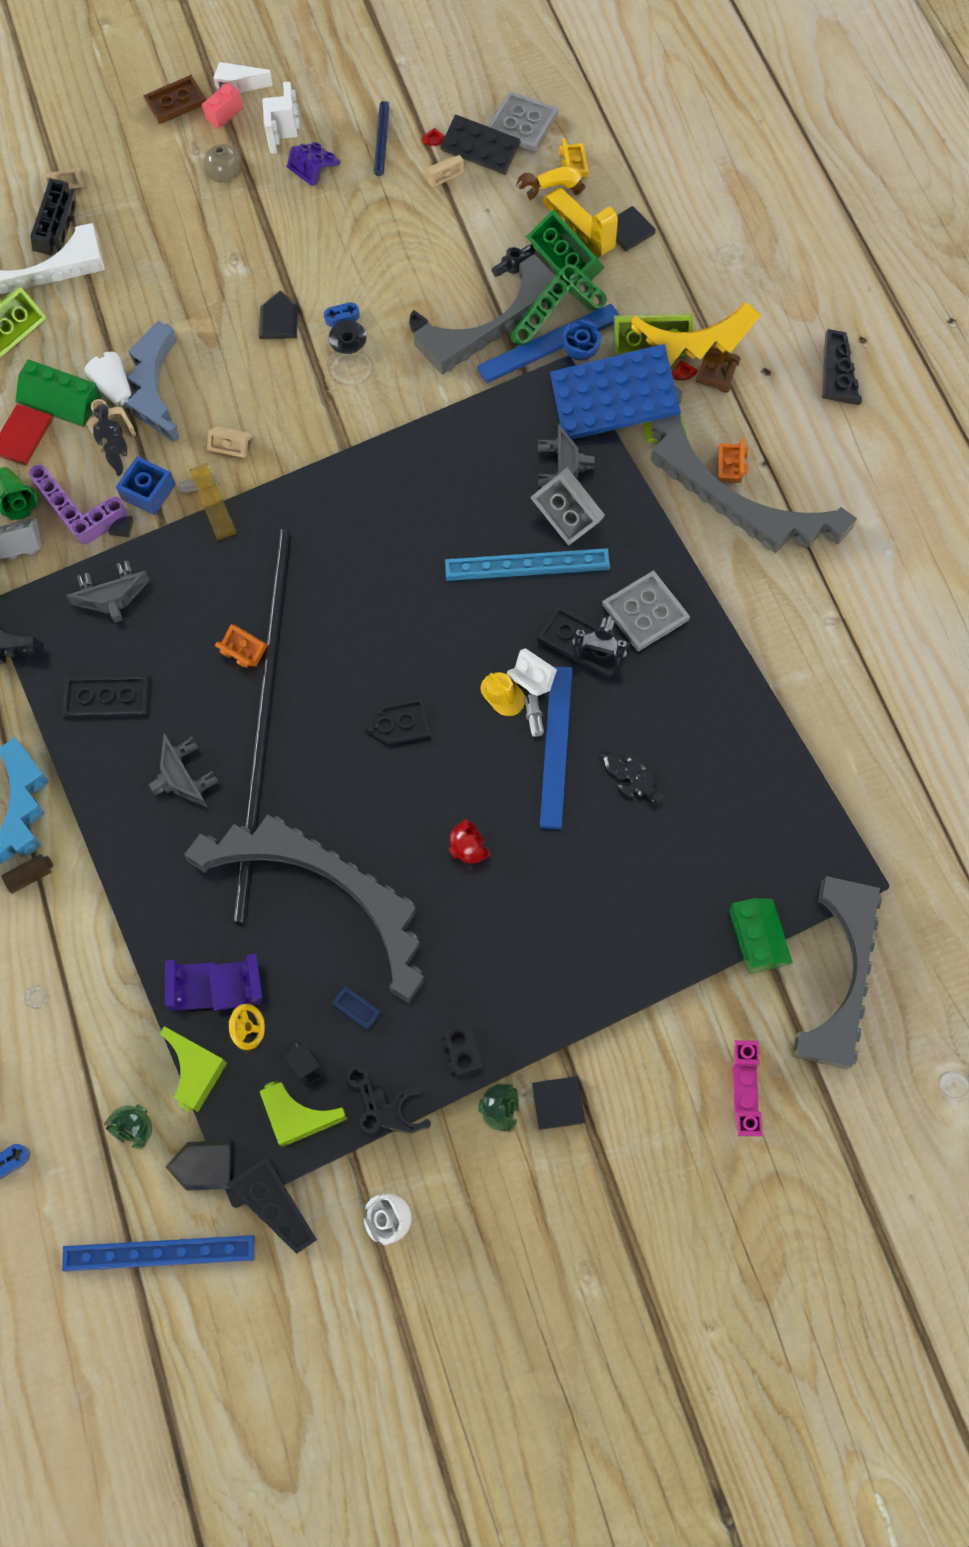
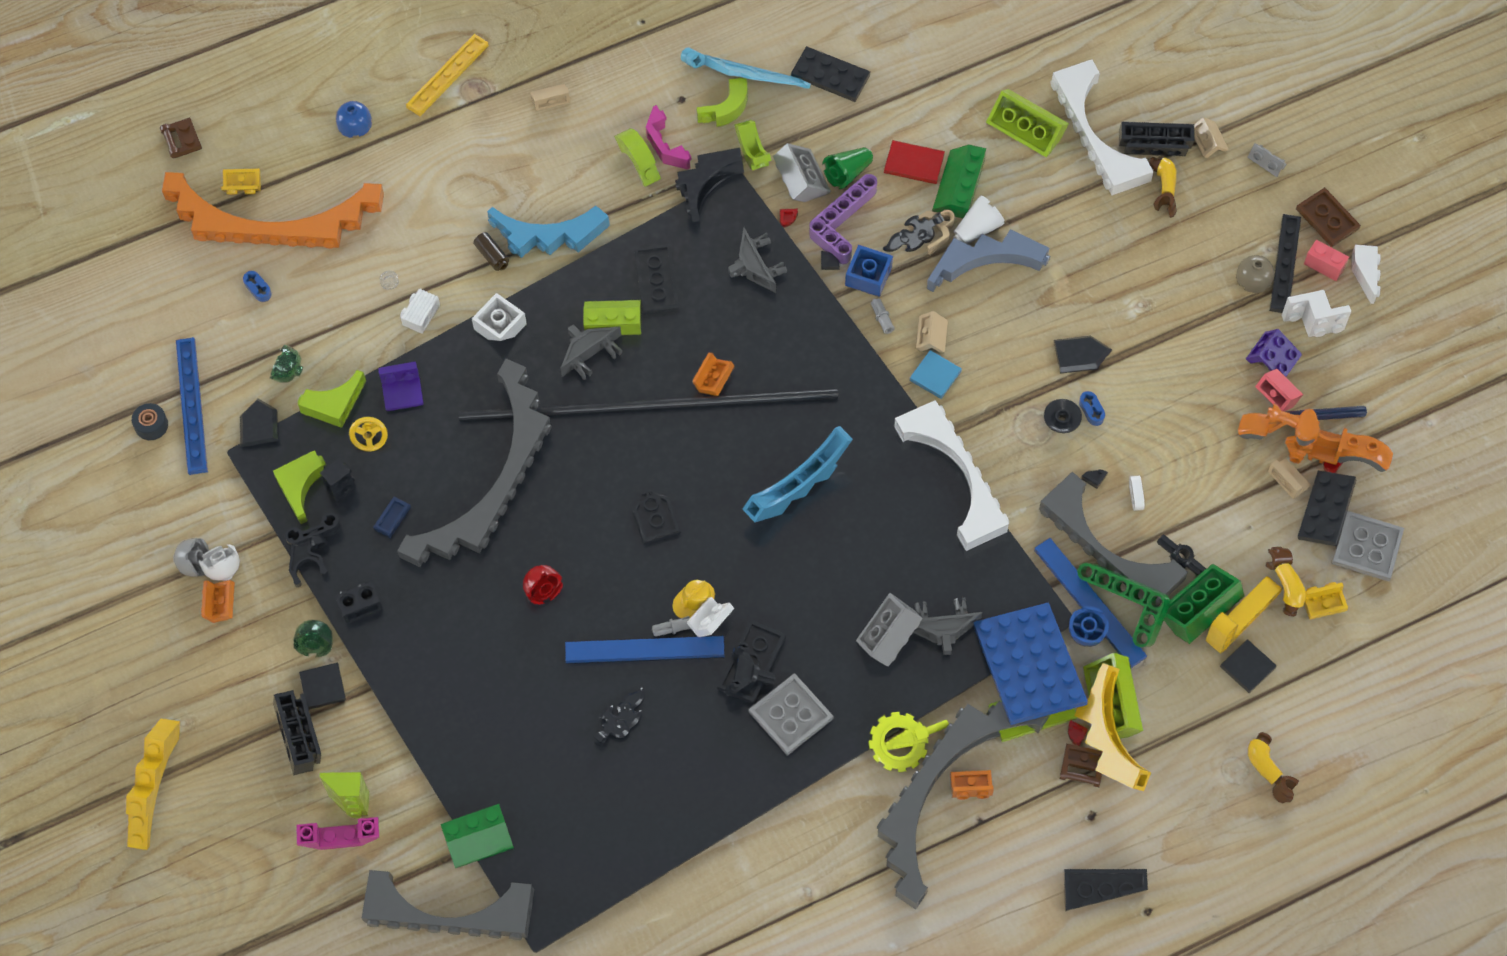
camera: 80 degrees right, 5 degrees down
(56, 561) = (788, 216): none -> red tile
(88, 960) = (420, 310): none -> white brick
(99, 214) = (1167, 171): none -> piece
(100, 137) = (1266, 160): none -> light grey hinge
(126, 865) = (499, 319): none -> white slope
(144, 743) = (614, 314): none -> lime slope
(182, 1307) = (149, 421): none -> black wheel
(208, 138) = (1285, 262): none -> black tile
(212, 501) = (860, 328): clear yellow tile -> none
(235, 984) = (403, 419): dark purple bracket -> none
(268, 1197) = (234, 473): black wing -> none
(277, 443) = (935, 374): none -> dark azure tile
(354, 160) = (1279, 390): none -> coral brick
(374, 1258) = (188, 556): none -> light grey cylinder
(389, 575) = (796, 485): none -> dark azure arch
(417, 134) = (1316, 442): none -> orange piece
(436, 1224) = (217, 600): none -> orange bracket
(441, 288) = (1136, 493): none -> white beam
(447, 414) = (932, 428): none -> white arch
(527, 564) = (830, 606): dark azure tile -> none
(618, 1132) = (292, 732): none -> black brick
(667, 1313) = (148, 775): none -> yellow arch
(679, 509) = (914, 736): none -> neon yellow bar
(707, 1069) = (347, 791): none -> lime slope
(724, 229) = (1260, 758): none -> piece

